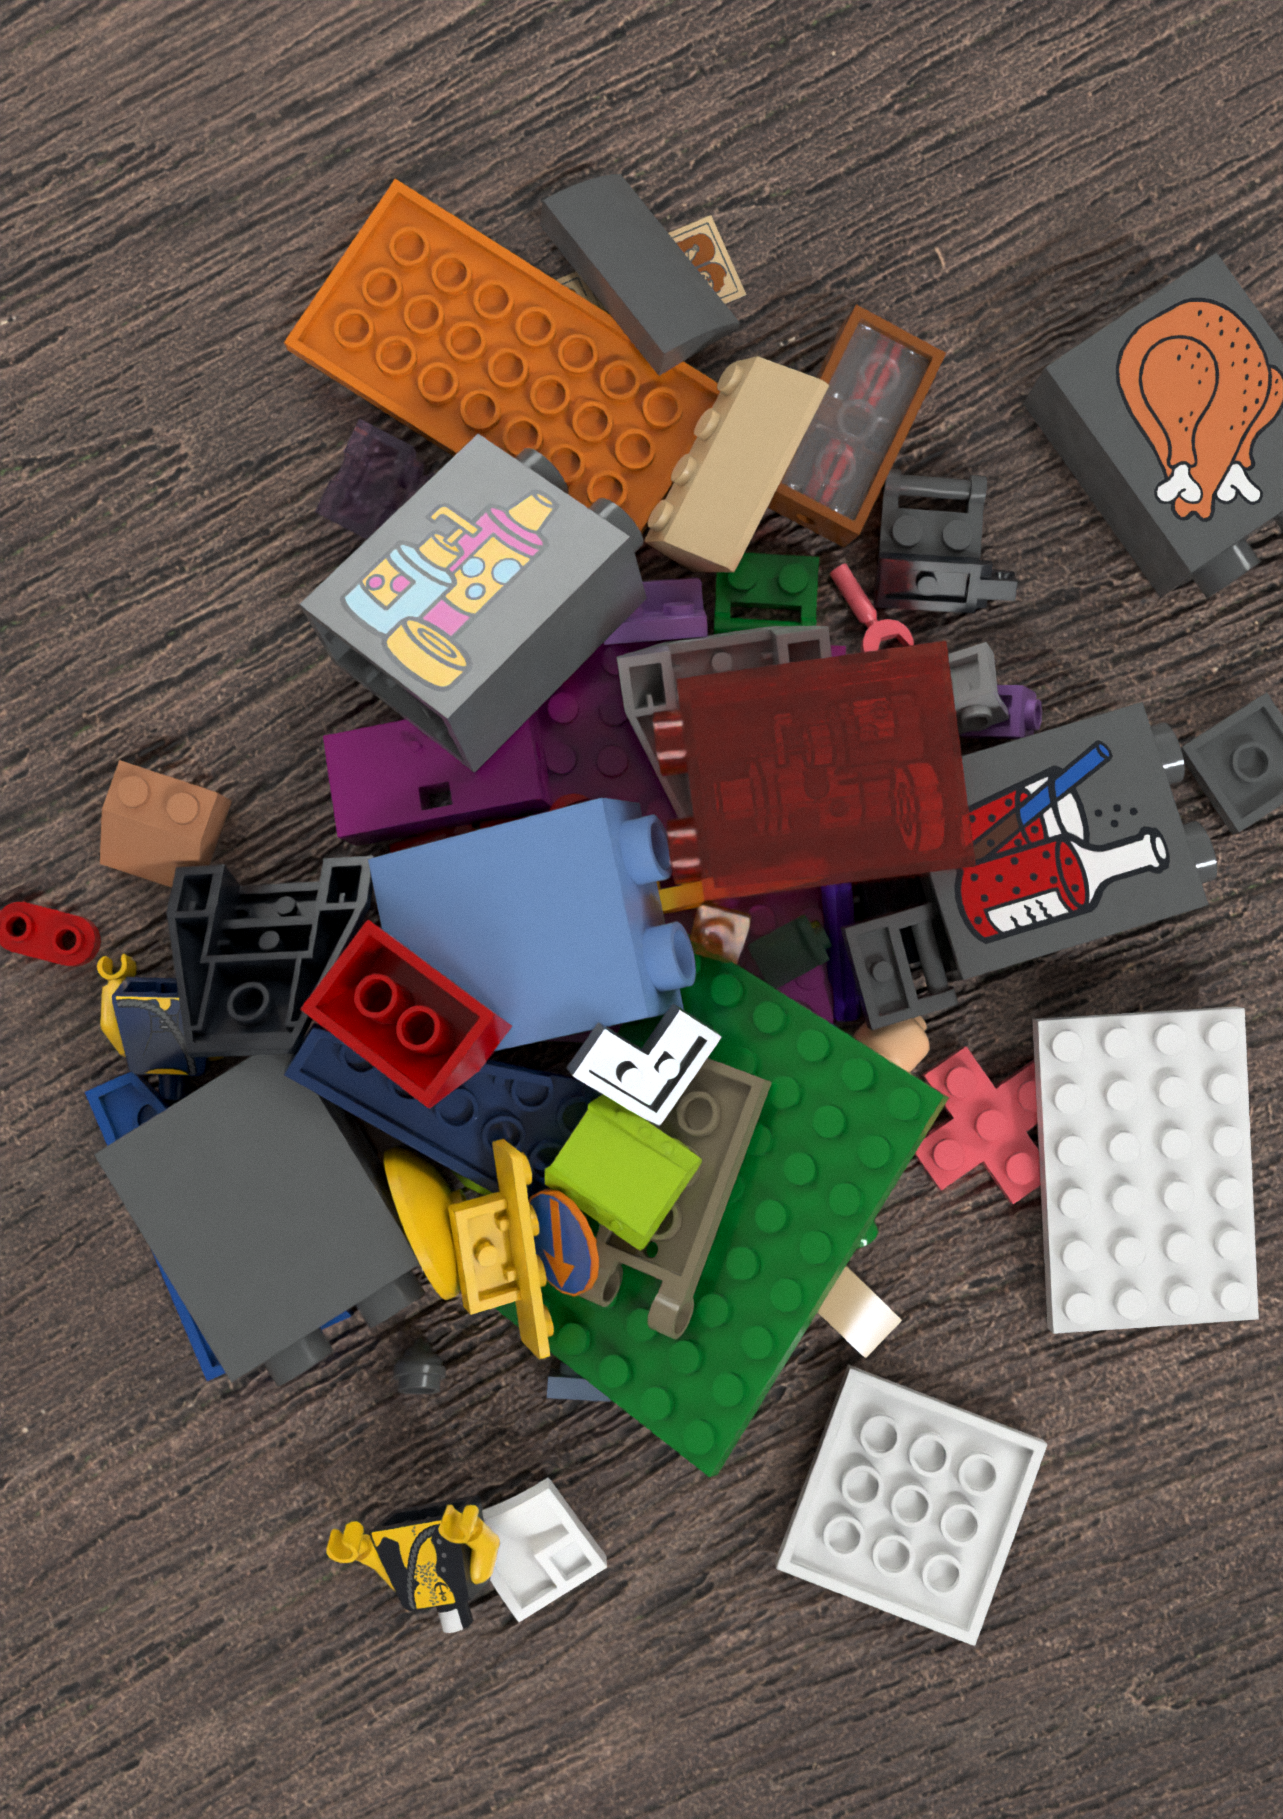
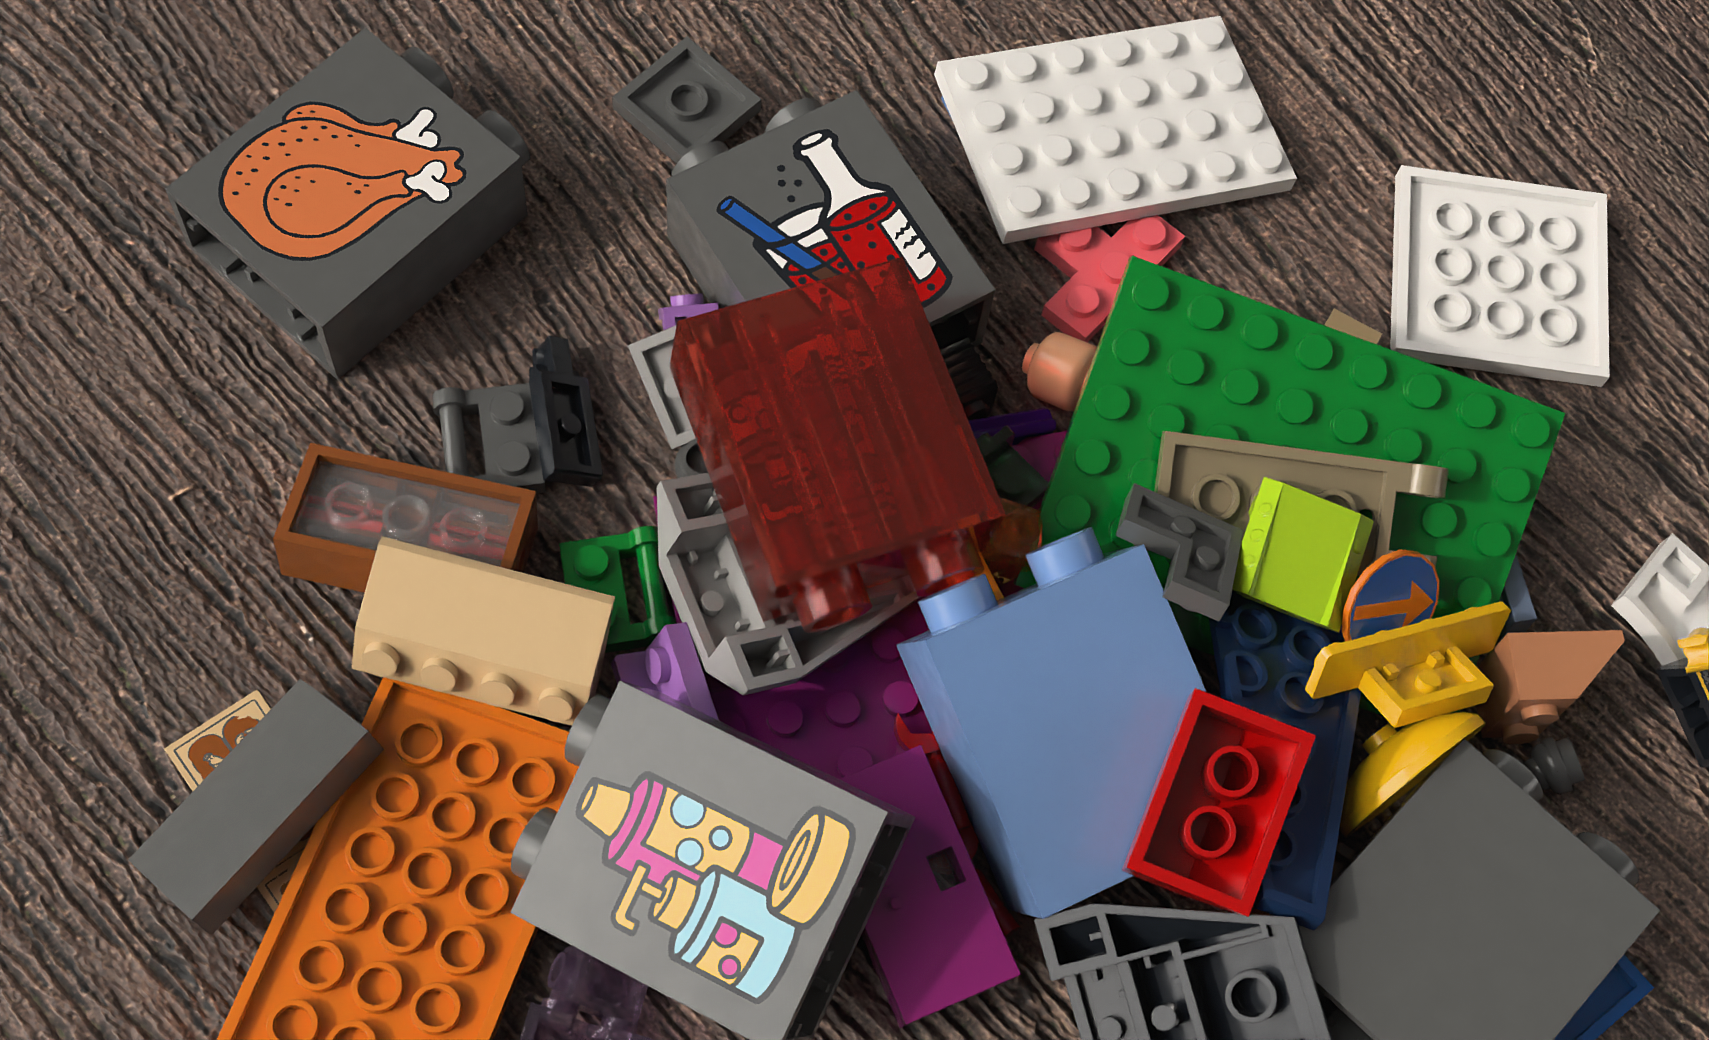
camera: 110 degrees left, 20 degrees down
(483, 1379) = (1540, 678): none -> nougat slope
(867, 614) = (626, 473): coral piece -> none
(884, 971) = (1004, 374): dark grey plate -> none

